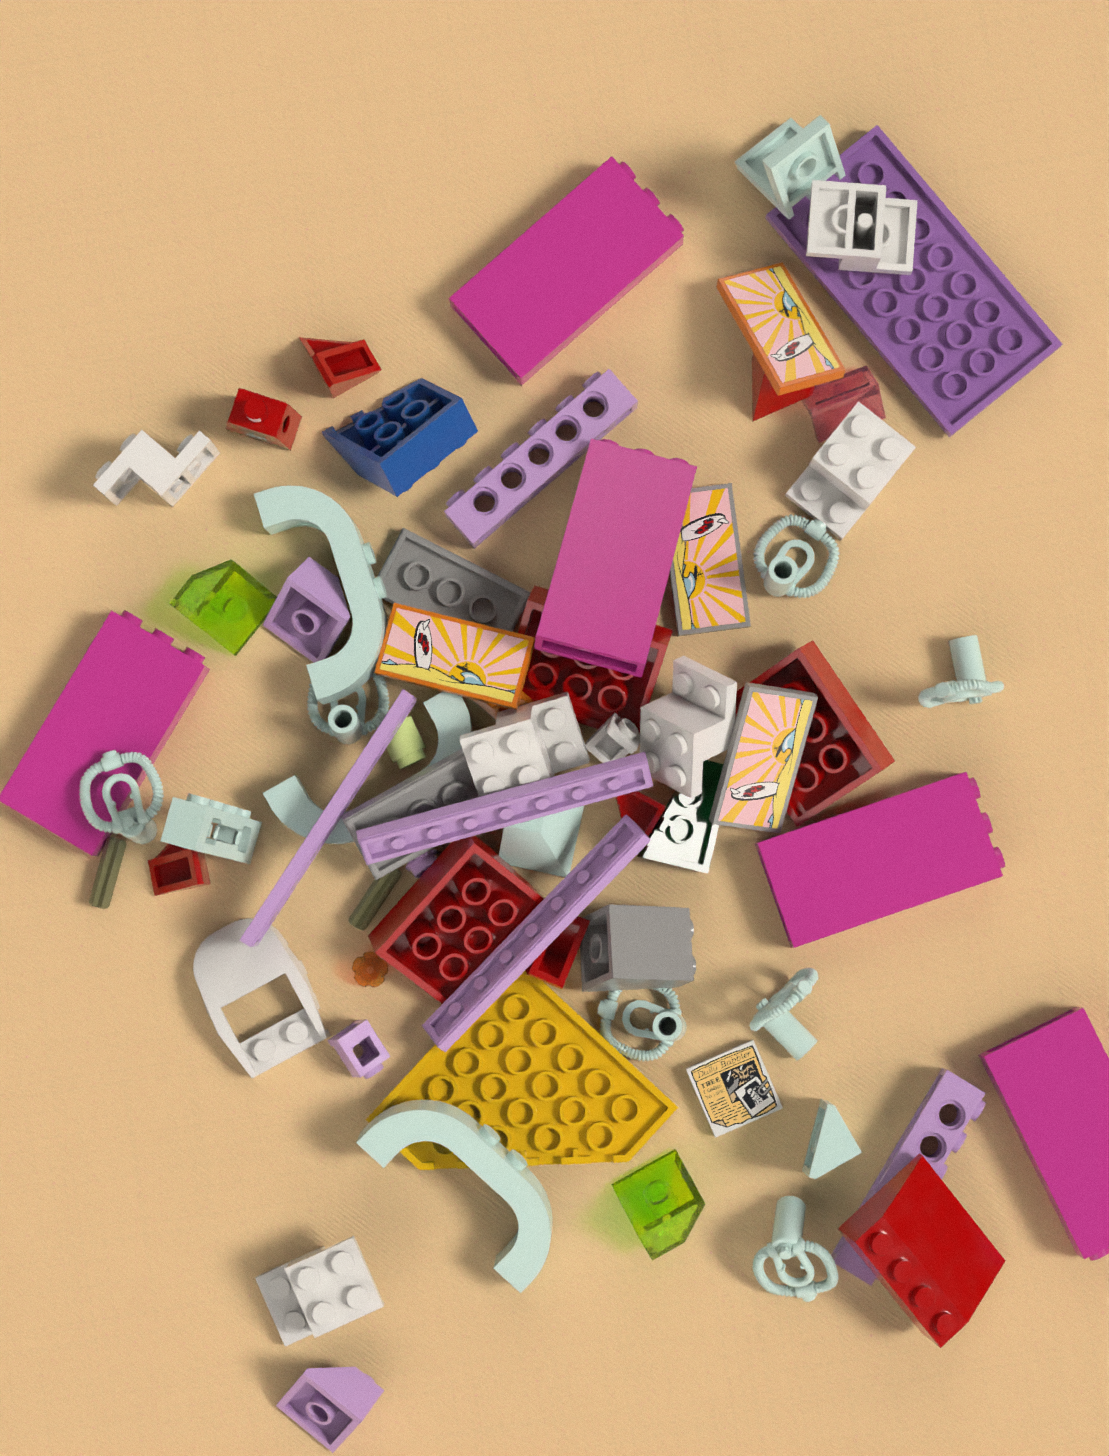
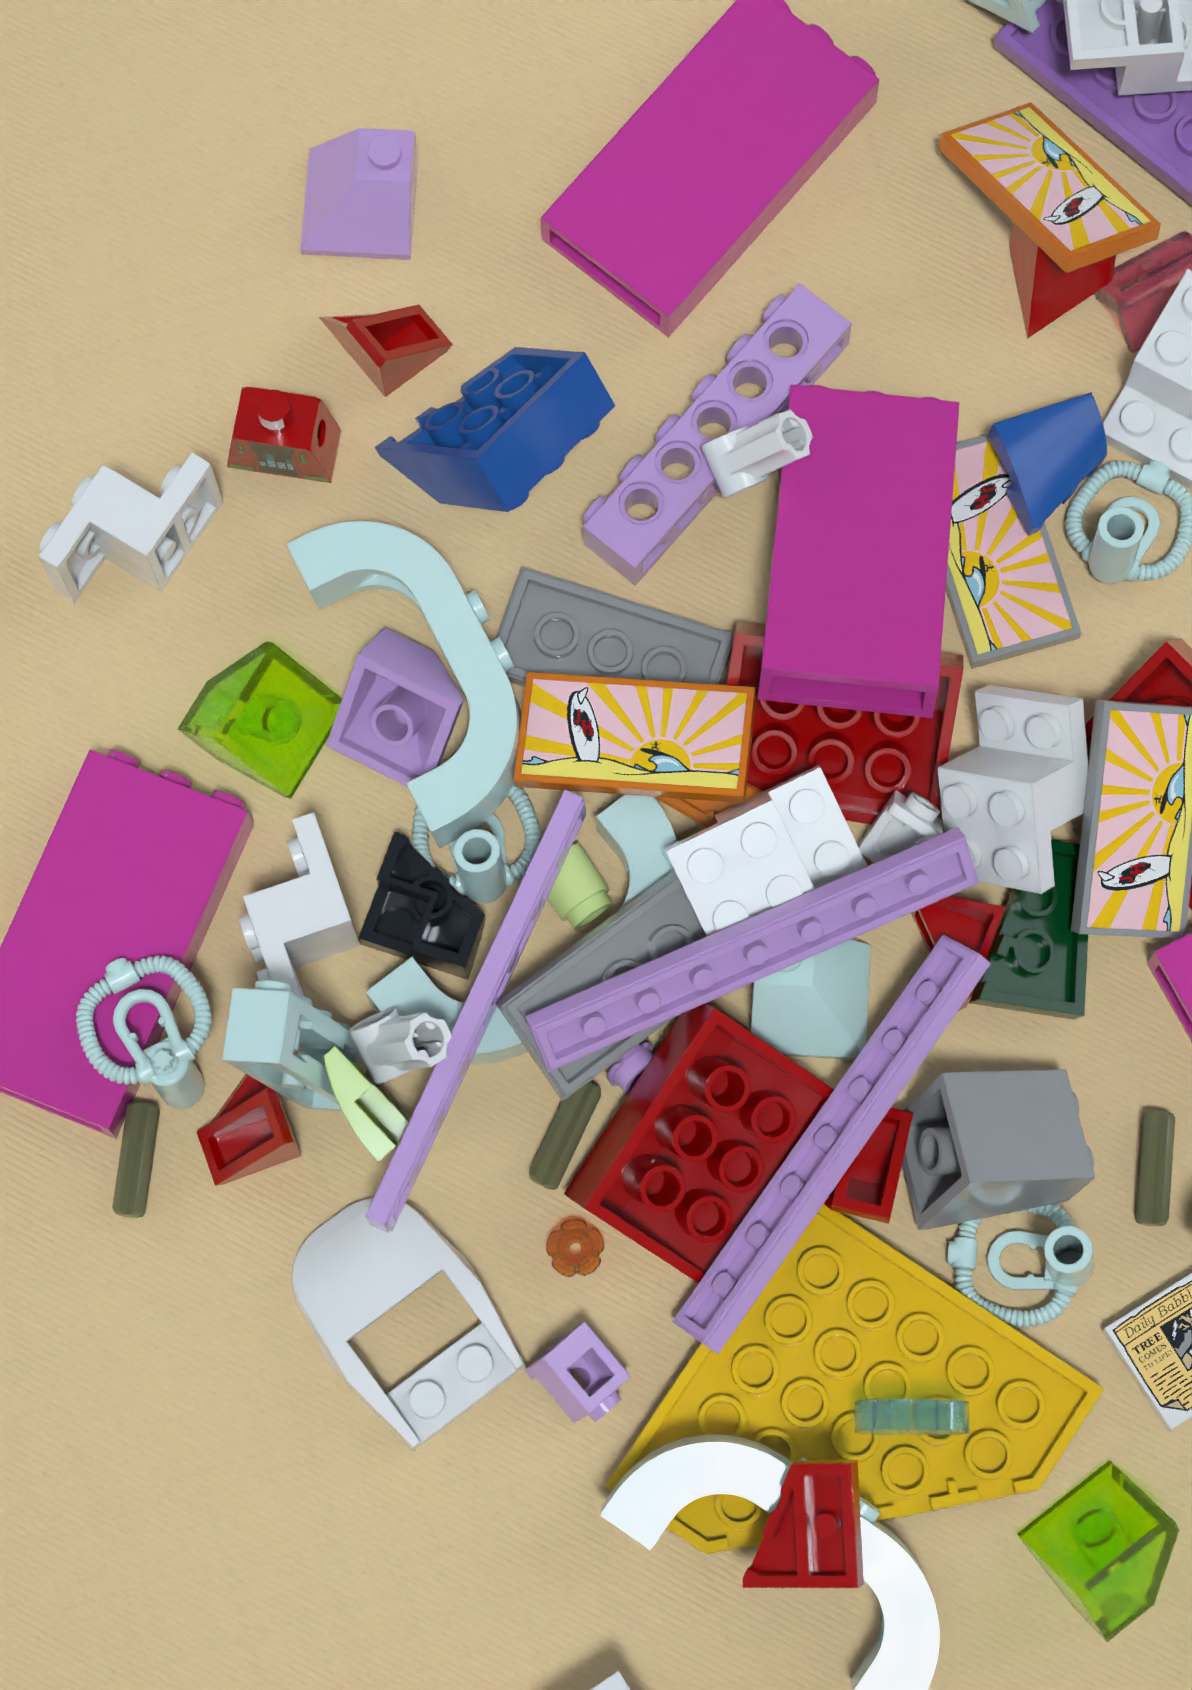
camera: 10 degrees left, 10 degrees down
(227, 742) = (299, 917): none -> white bracket
(252, 868) = (365, 1105): none -> slope
(276, 833) = (399, 1043): none -> white piece
(306, 744) = (421, 914): none -> black slope
(336, 261) = (361, 195): none -> lavender slope
(482, 1174) = (813, 1531): none -> red wing
(556, 1109) = (912, 1417): none -> clear light blue beam
(557, 484) = (751, 453): none -> white piece
(735, 974) = (1155, 1168): none -> olive axle
(750, 507) = (1049, 455): none -> blue slope

